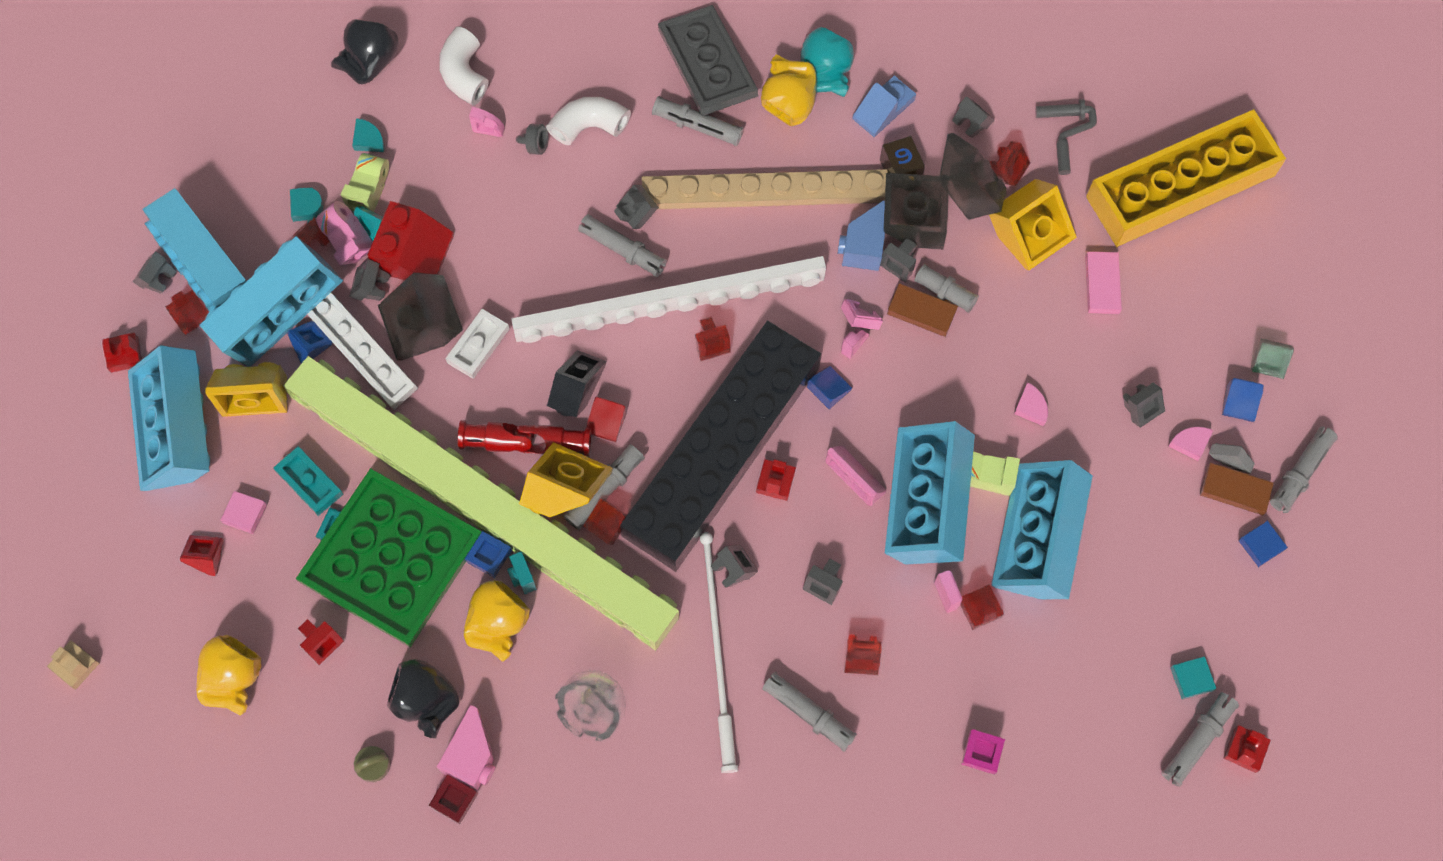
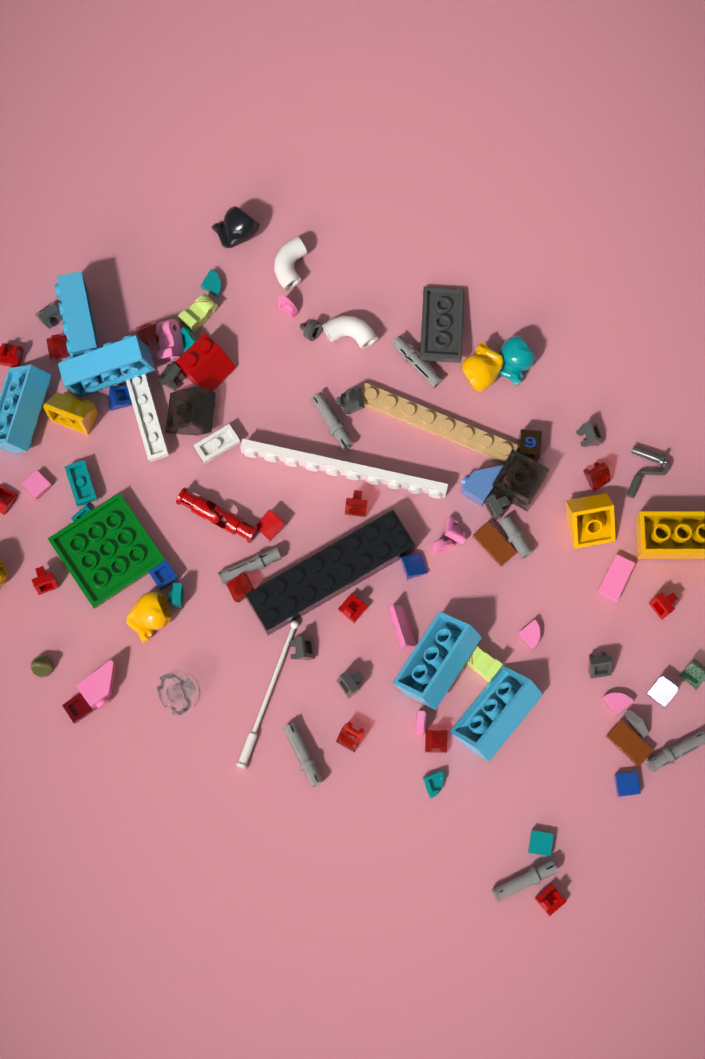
camera: 25 degrees right, 5 degrees up
(305, 204) = (156, 310): teal tile -> none
(422, 695) = (87, 641): black piece -> none
(482, 502) = (174, 542): yellowish green brick -> none
(562, 481) = (224, 552): yellow slope -> none
(575, 383) = (262, 495): black slope -> none
(883, 105) = (538, 402): medium blue slope -> none
(970, 179) = (562, 476): clear smoke slope -> none
(983, 751) = (391, 826): dark pink tile -> none
(1008, 665) = (434, 783): none -> teal tile
(1183, 289) = (663, 605): none -> red tile

